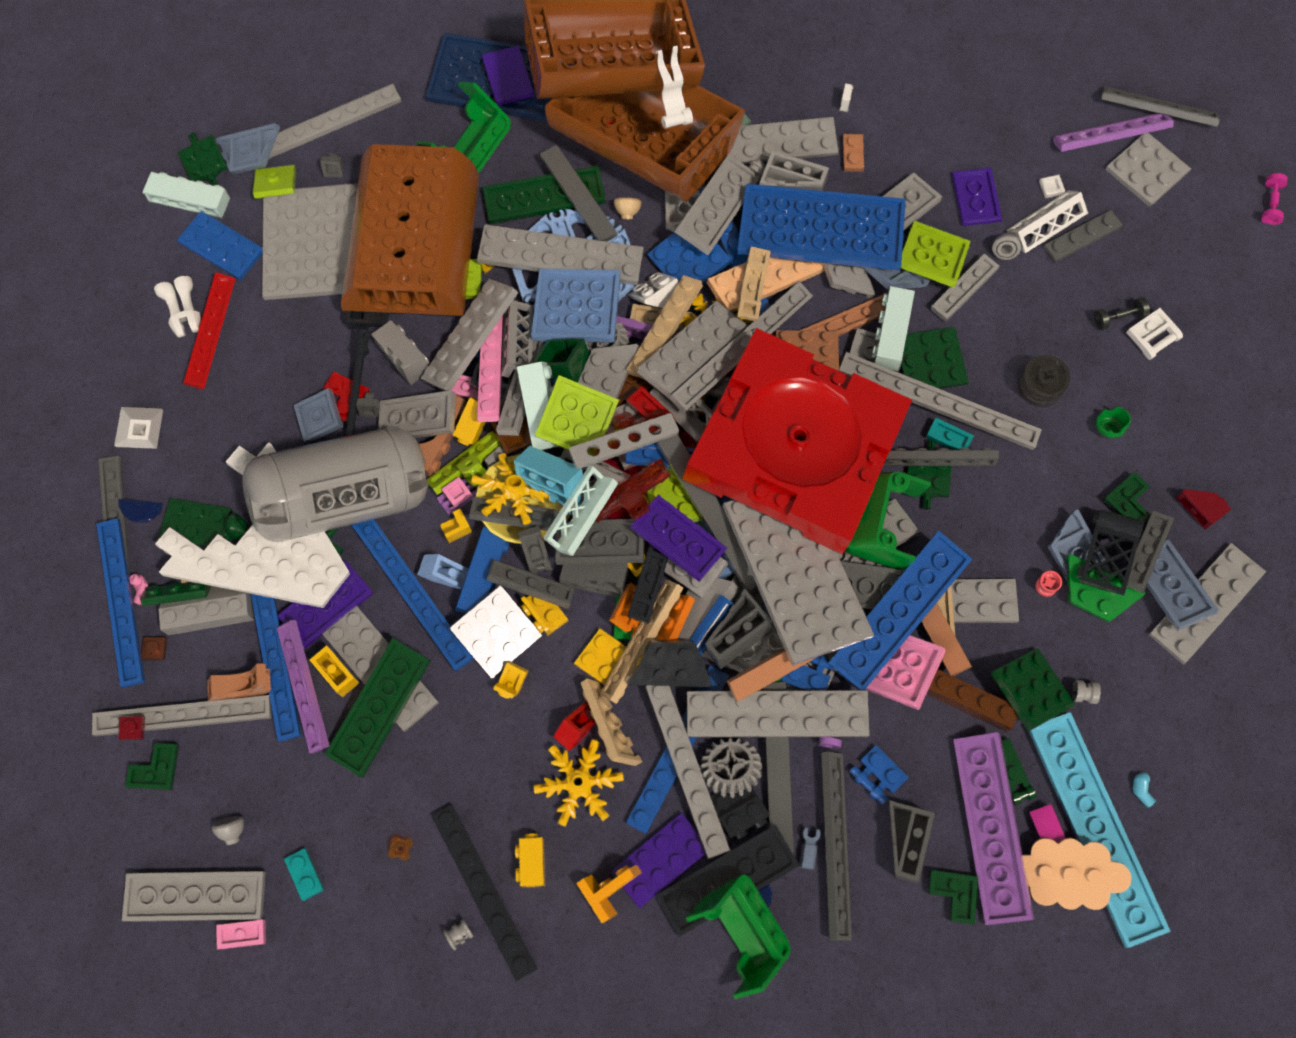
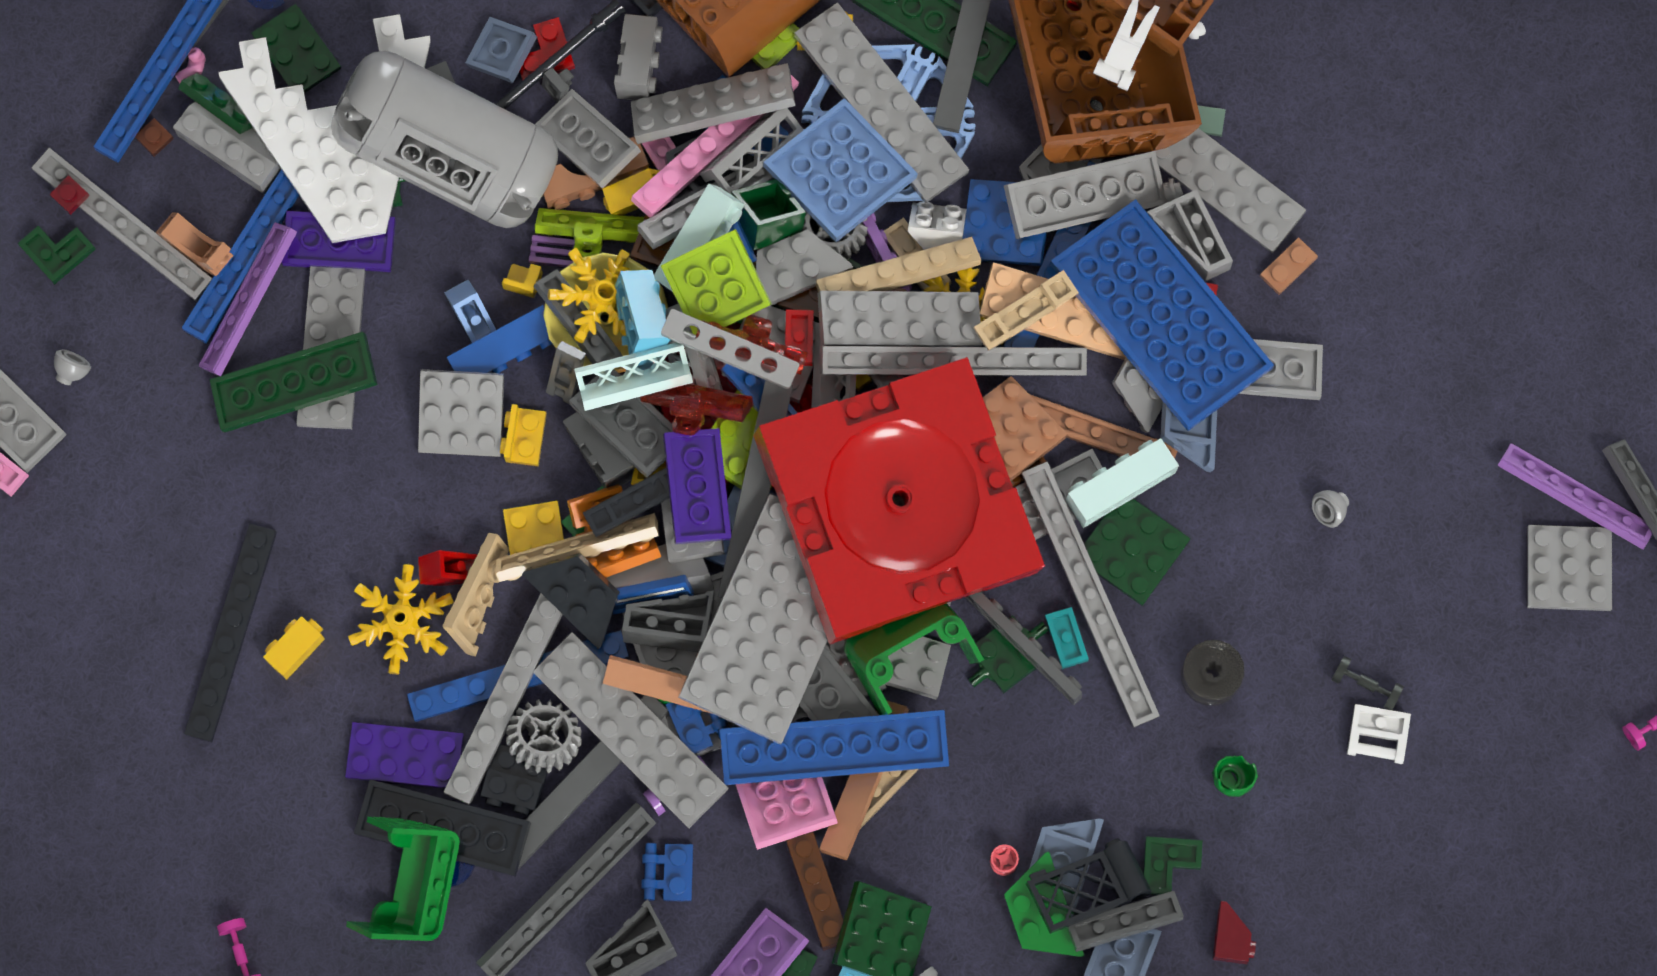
camera: 45 degrees right, 5 degrees up
(235, 527) = (326, 90): dark green brick -> none
(304, 874) = (96, 468): teal plate -> none
(334, 671) = (287, 312): yellow brick -> none
(396, 842) = (188, 523): clear orange plate -> none
(413, 593) = (424, 305): blue plate -> none
(456, 492) = (553, 247): bright pink plate -> none
(458, 934) = (174, 646): light grey bush -> none
(493, 457) = (615, 246): light grey tile -> none
(511, 680) = (431, 471): yellow bracket -> none
(530, 584) = (534, 399): dark grey tile -> none
(598, 895) = (323, 730): light orange bracket -> none
(627, 207) = (1001, 111): tan brick -> none
(808, 850) = (539, 873): sand blue bar -> none
(846, 97) = (1342, 201): white tile -> none
(934, 254) = (1247, 447): lime plate -> none
(965, 287) = (1244, 509): light grey plate -> none
(976, 196) = (1362, 429): dark purple tile -> none
(985, 601) = (930, 817): light grey plate -> none
(1044, 215) = (1404, 513): white fence -> none
(1052, 186) = (1450, 492): white tile -> none
(1083, 236) = (1422, 571): dark grey plate -> none

